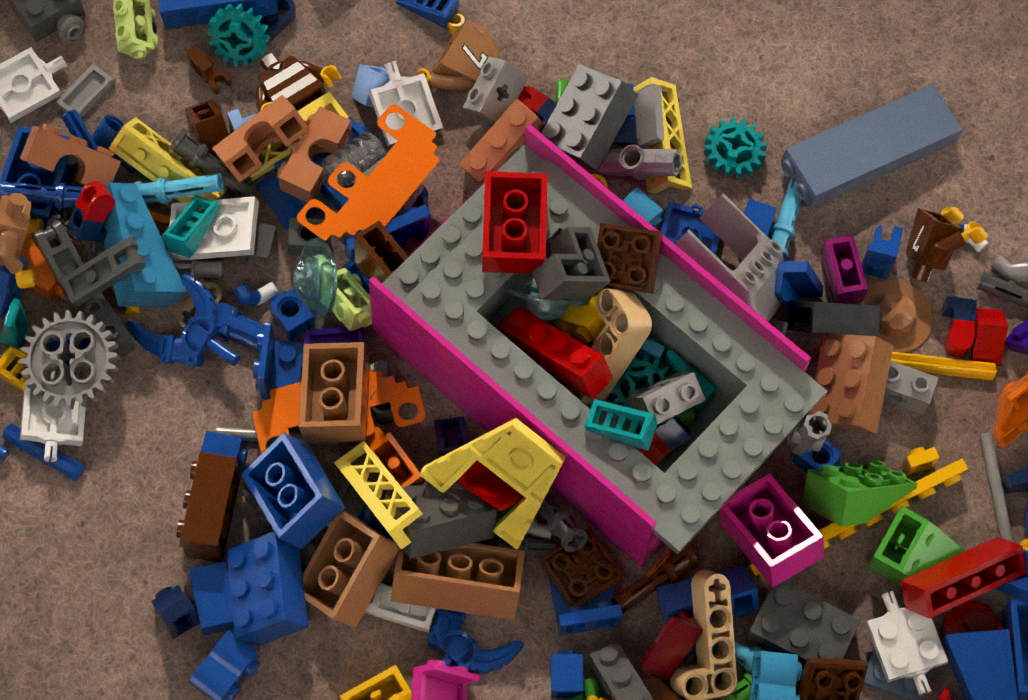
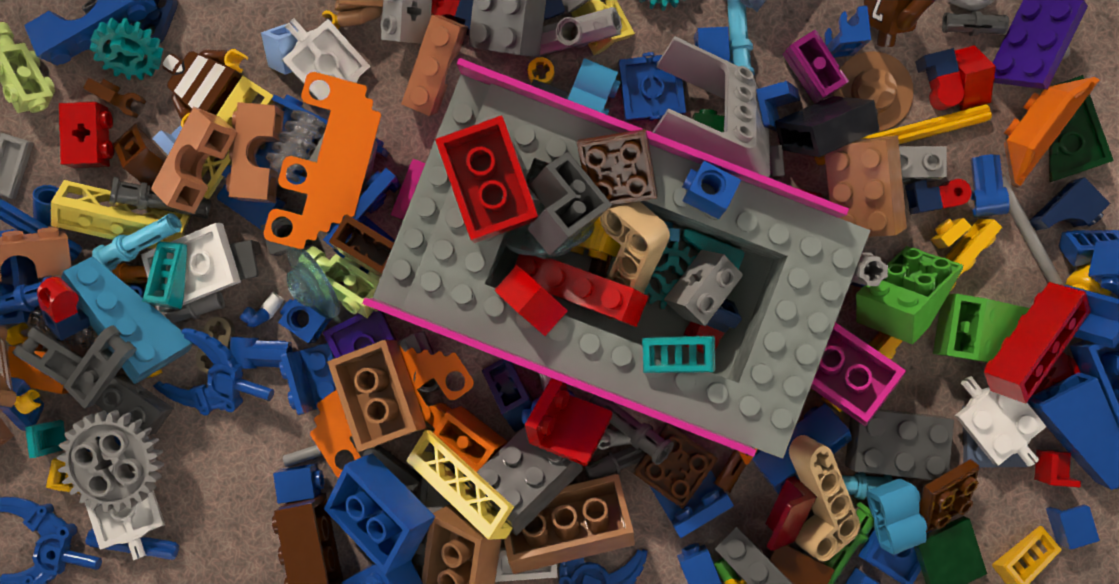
camera: 15 degrees left, 20 degrees up
(167, 91) = (75, 123): none -> red brick
(512, 334) = (530, 300): none -> red slope
(514, 456) = (577, 422): light yellow wing -> none
(698, 312) = (722, 182): none -> blue brick
(919, 425) = (945, 196): none -> leg
(970, 439) = (988, 187): none -> blue piece

